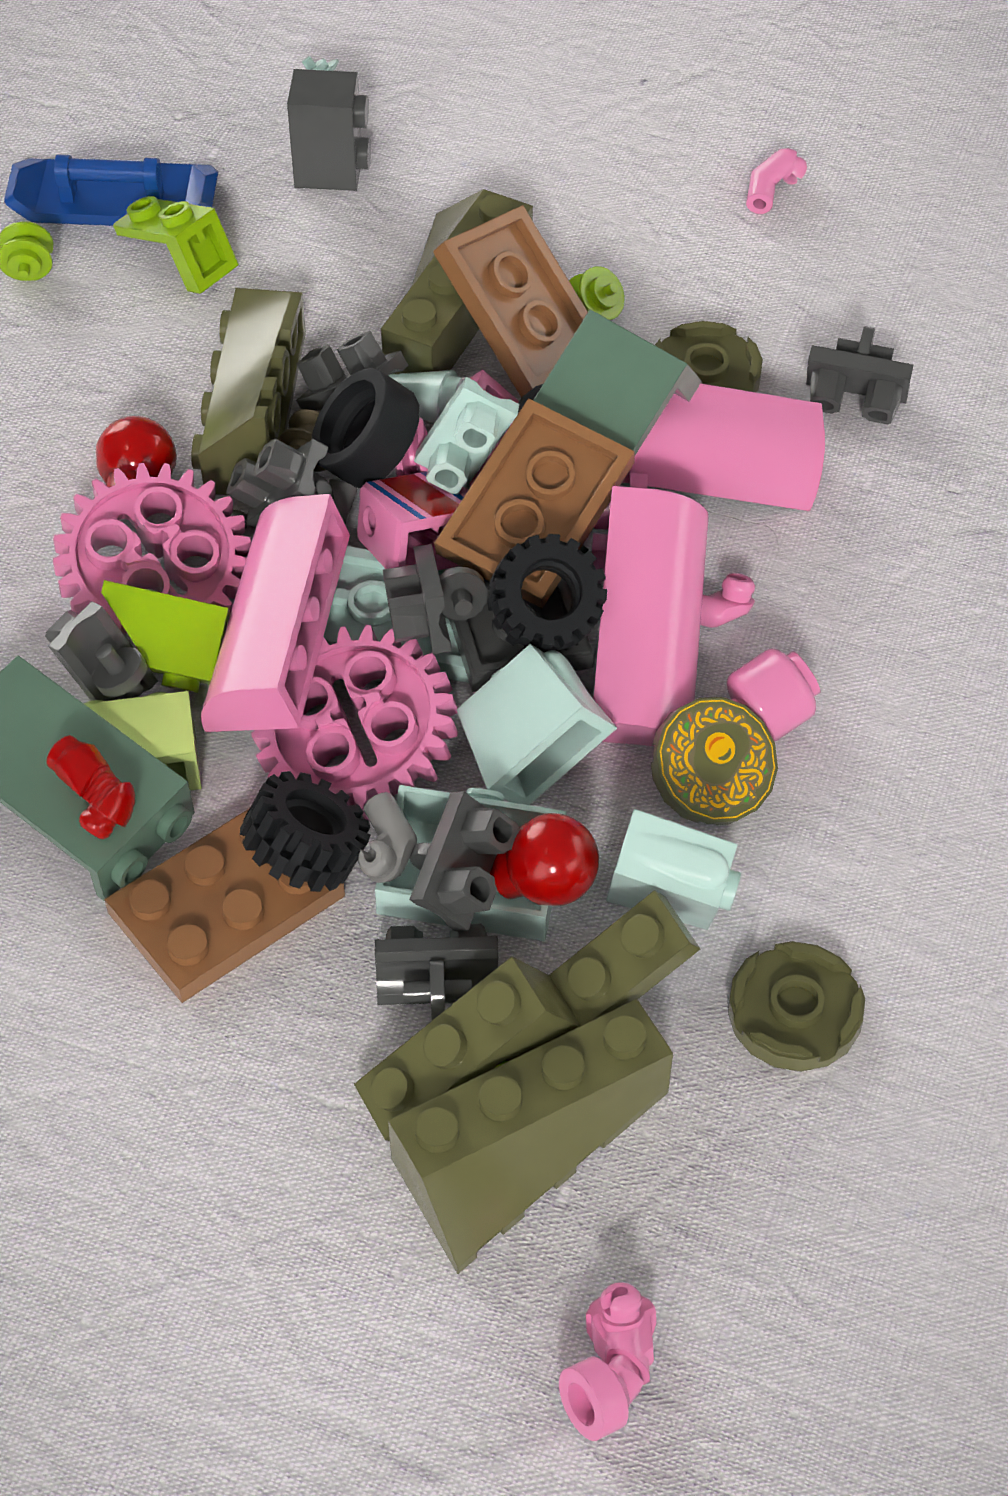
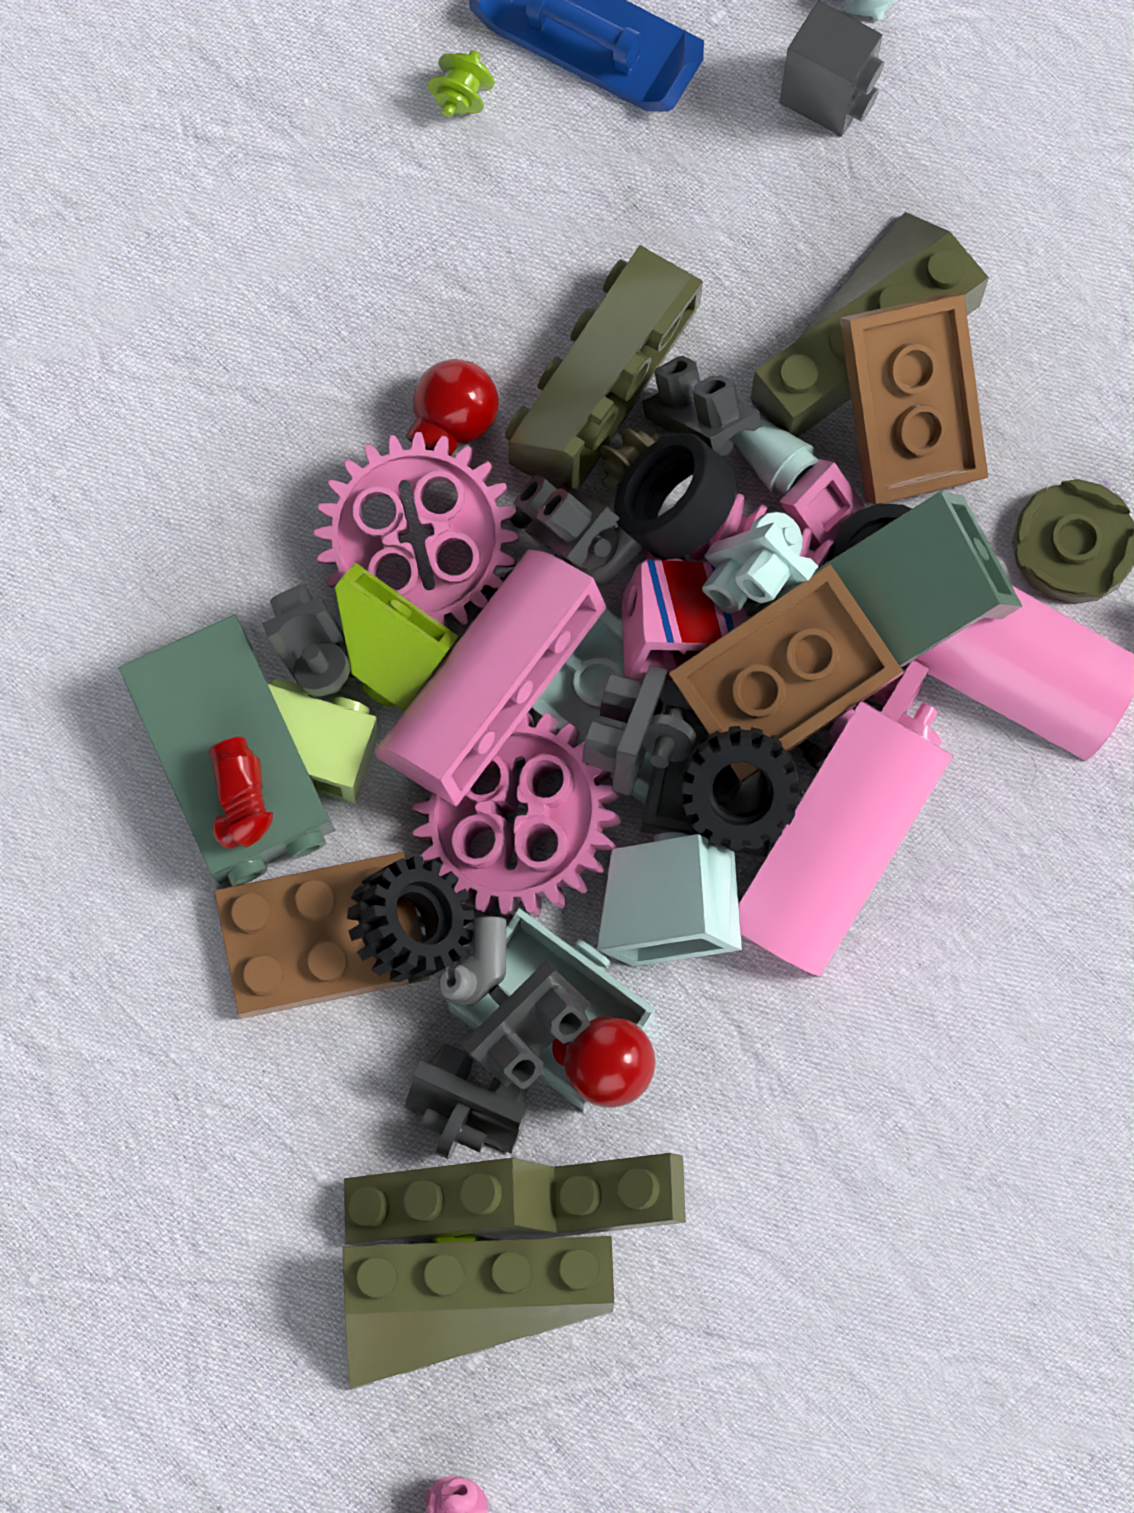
camera: 25 degrees right, 20 degrees up
(190, 233) = (624, 135): lime bracket -> none
(600, 291) = (1006, 407): lime wheel -> none
(679, 864) = (714, 1122): light aqua torso -> none
(714, 761) = (821, 1015): tile -> none
(728, 603) = (938, 836): bright pink arm -> none
(776, 690) = (917, 966): bright pink head -> none
(796, 1006) = (766, 1288): olive tile -> none

